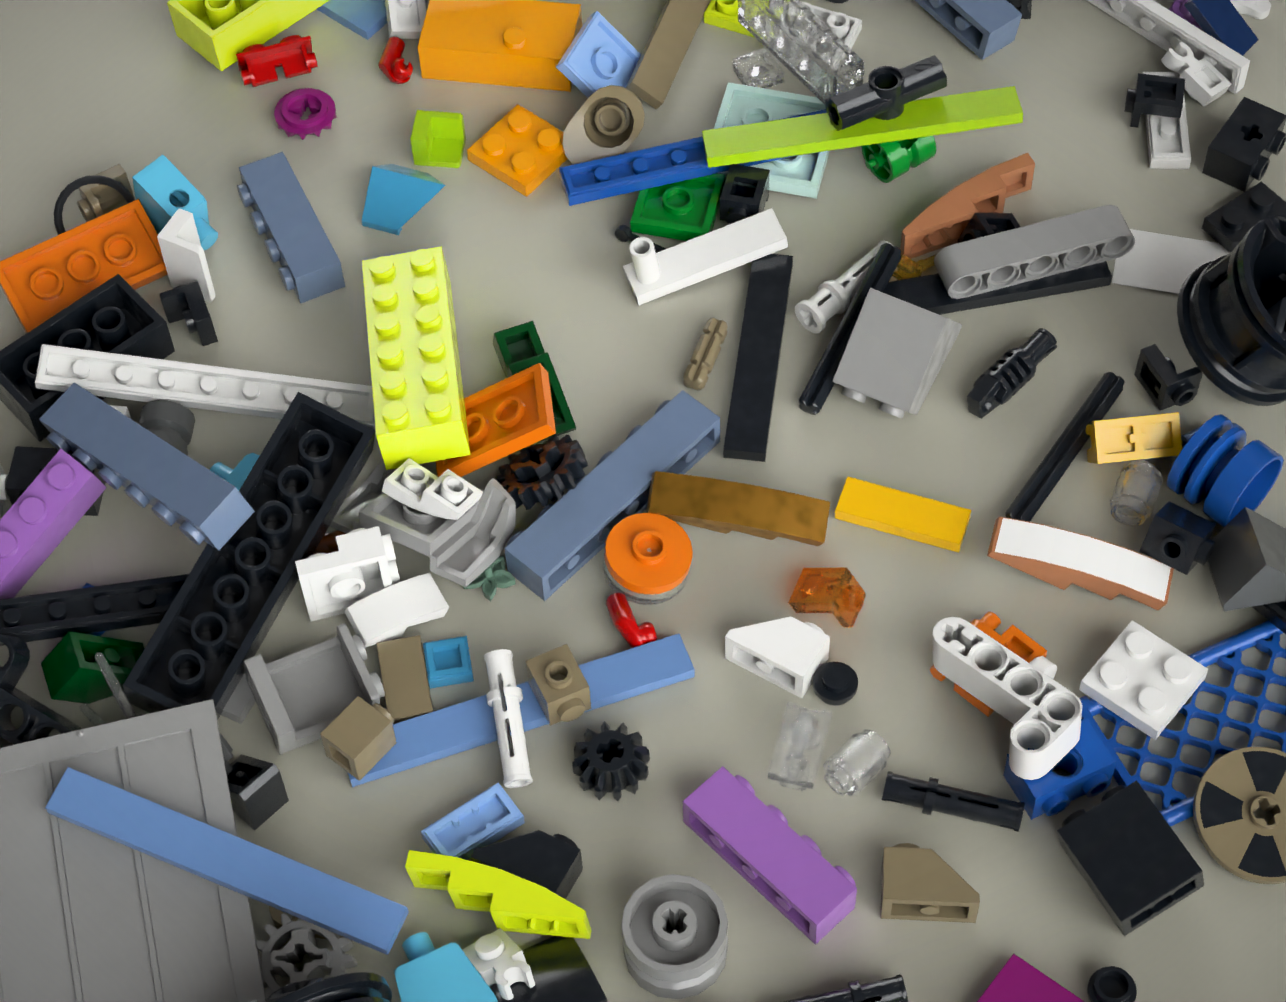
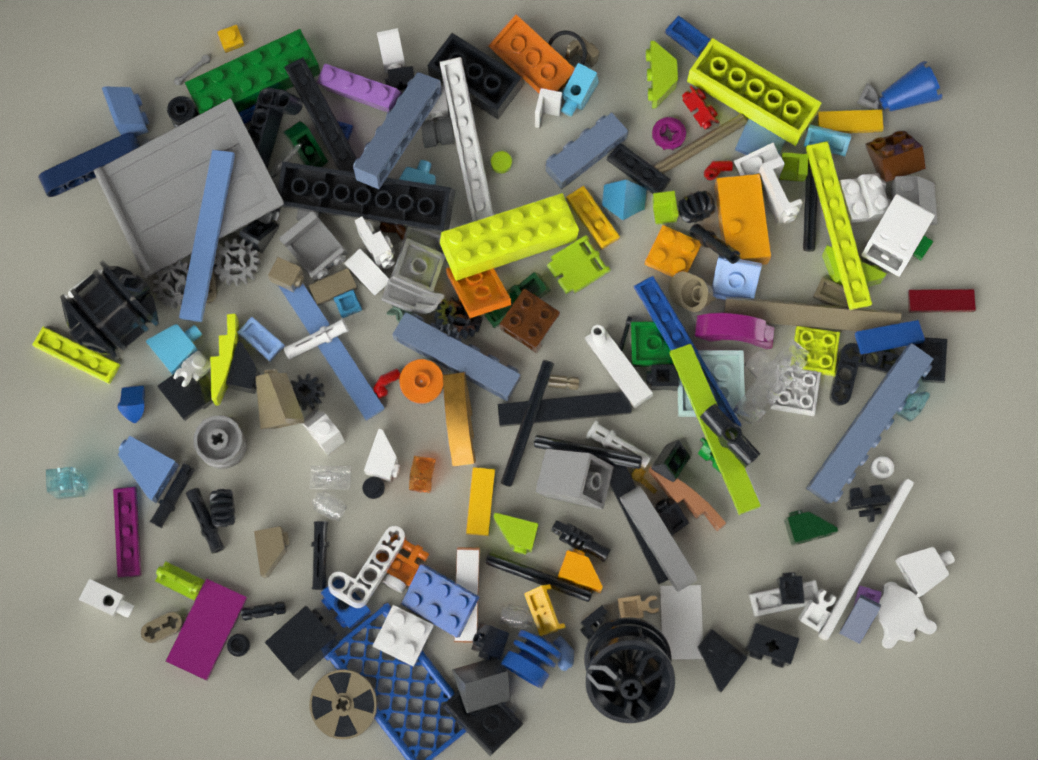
camera: 75 degrees right, 20 degrees up
(141, 53) = (687, 36): none -> blue plate
(189, 304) = (520, 122): black bracket -> none
(191, 97) = (661, 73): none -> lime slope
(259, 357) = (501, 162): none -> lime tile
(305, 823) = (231, 269): none -> light grey gear
(342, 78) = (701, 144): none -> dark tan axle
(354, 164) = (638, 169): none -> black tile
(422, 490) = (427, 268): white slope -> none
(452, 234) = (592, 217): none -> yellow tile
(455, 87) = (696, 206): none -> black gear
(500, 282) = (577, 266): none -> lime plate
(519, 84) = (710, 240): none -> black pin
(558, 685) = (335, 357): dark tan brick -> none
(587, 361) = (529, 320): none -> reddish brown bracket
(621, 803) = (277, 401): none -> dark tan slope
(686, 83) = (734, 327): none -> magenta arch
(700, 733) = (323, 431): none -> white slope
(770, 854) = (273, 475): medium lavender brick -> none
(776, 405) = (527, 423): none -> black axle
(818, 955) = (222, 507): none -> black gear
(896, 211) = (671, 461): none -> black slope
(977, 461) = (517, 532): none -> lime slope
(1047, 929) = (263, 610): none -> black axle
(1053, 63) = (807, 527): none -> dark green slope
(1067, 380) = (580, 571): none -> light orange slope
(1087, 600) = (440, 600): none -> plate
(1147, 317) = (634, 607): none -> tan plate

